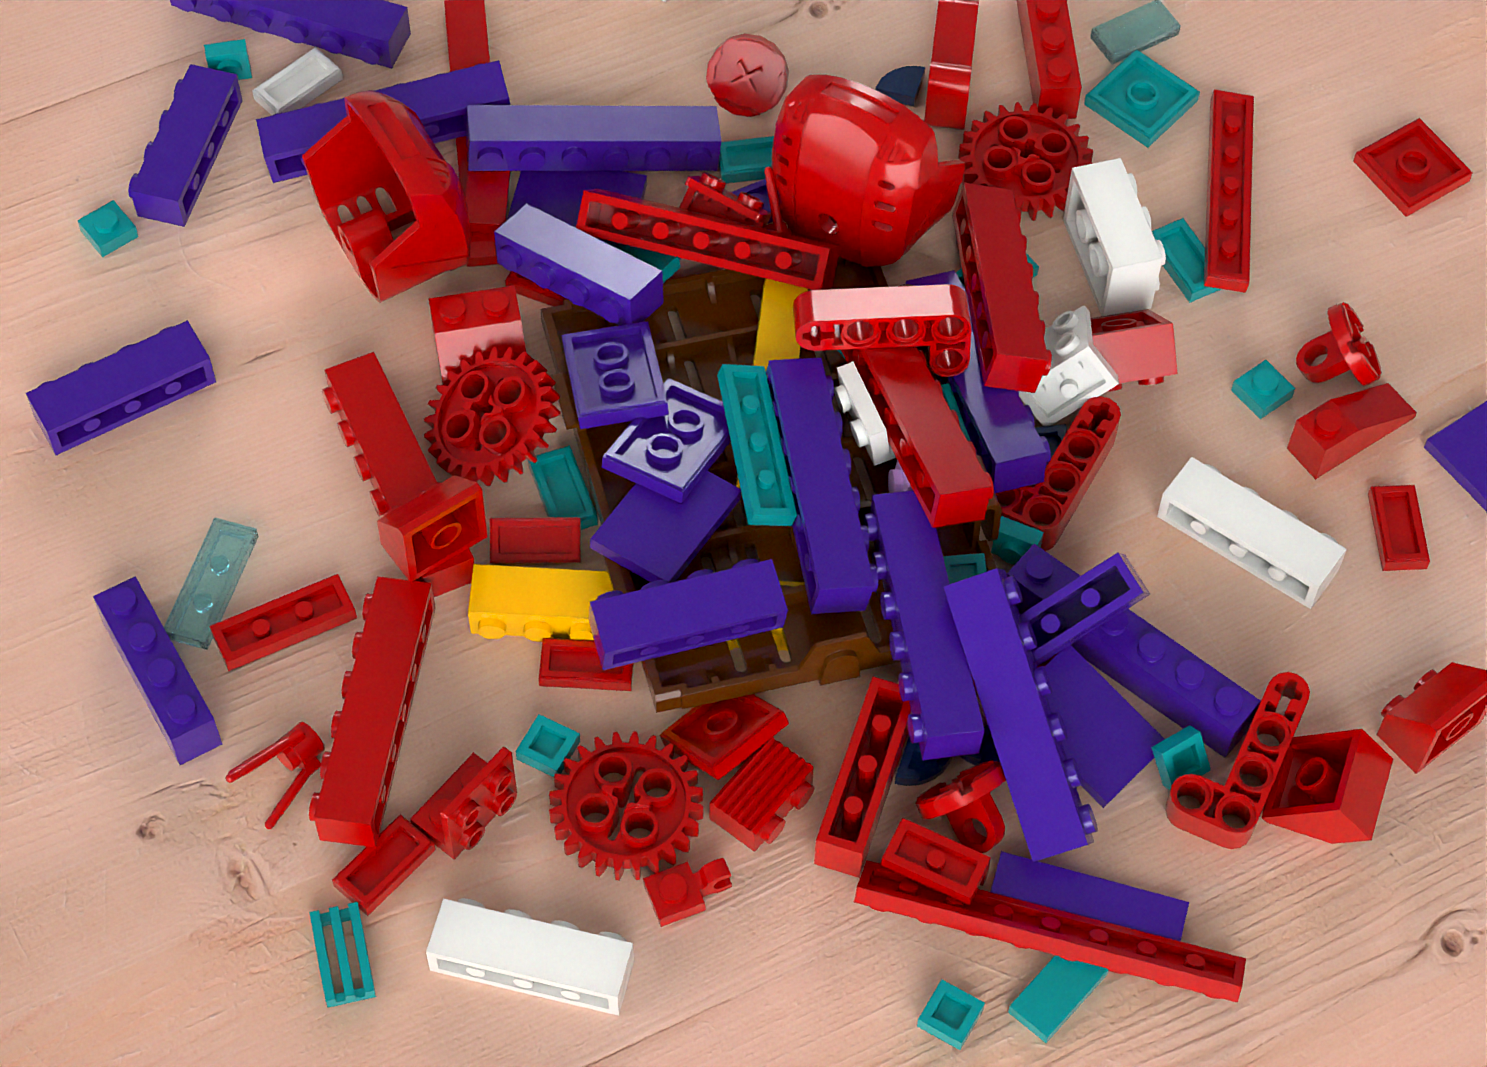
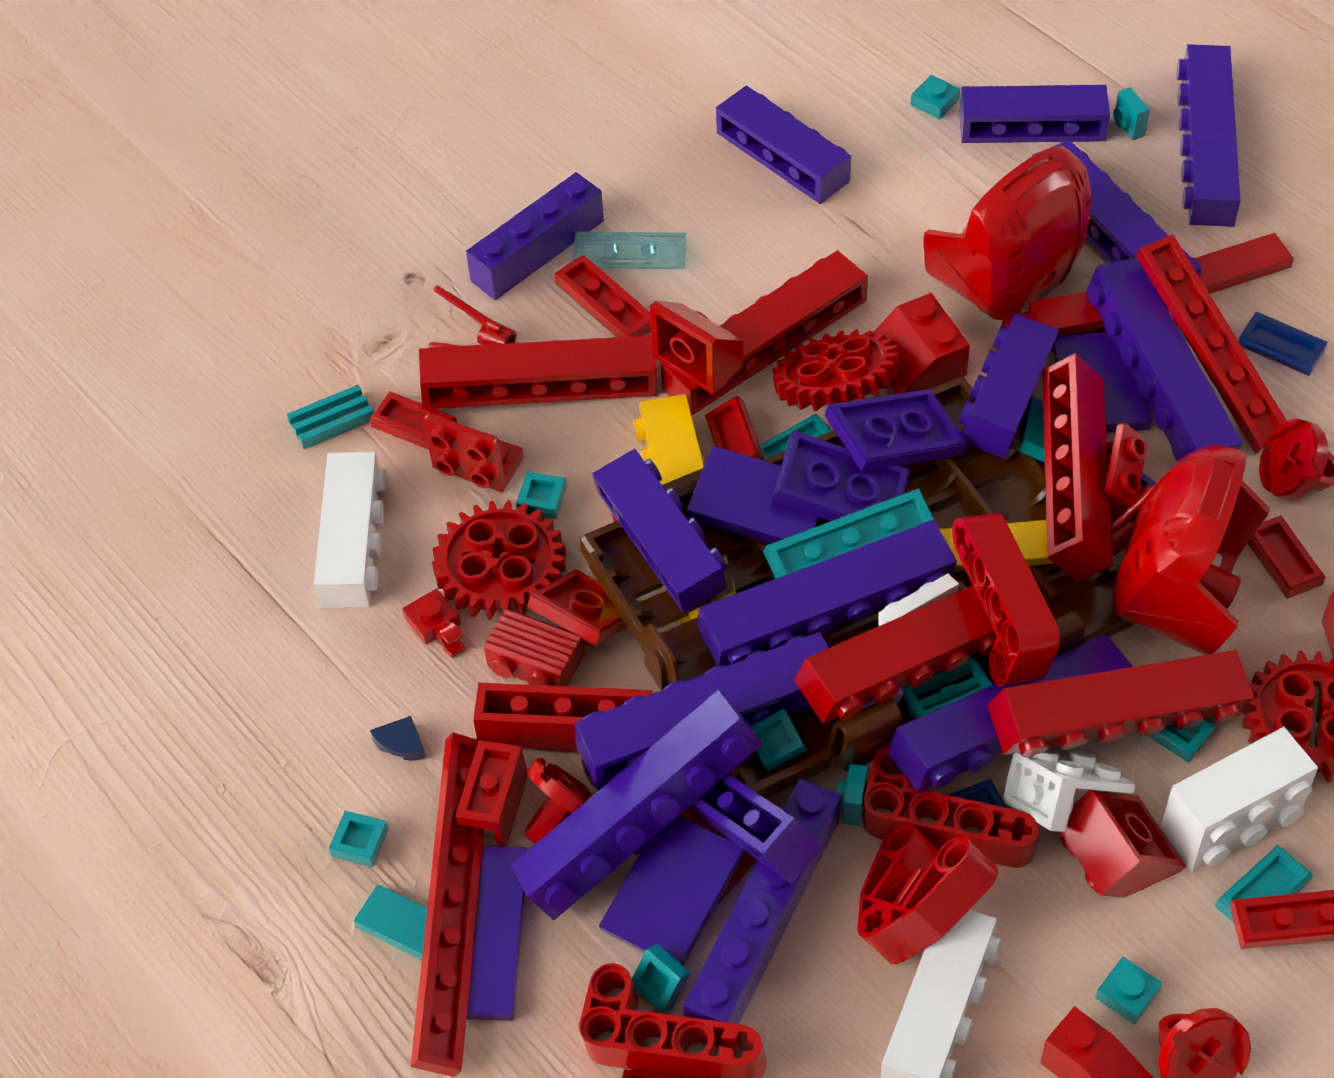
camera: 80 degrees right, 5 degrees down
(298, 83) = (1137, 167): white tile -> none
(582, 44) = (1282, 343): none -> clear blue tile
(587, 84) = (1212, 341): none -> red plate
(830, 954) = (399, 739): none -> dark blue tile
(1179, 485) = (919, 891): none -> red connector

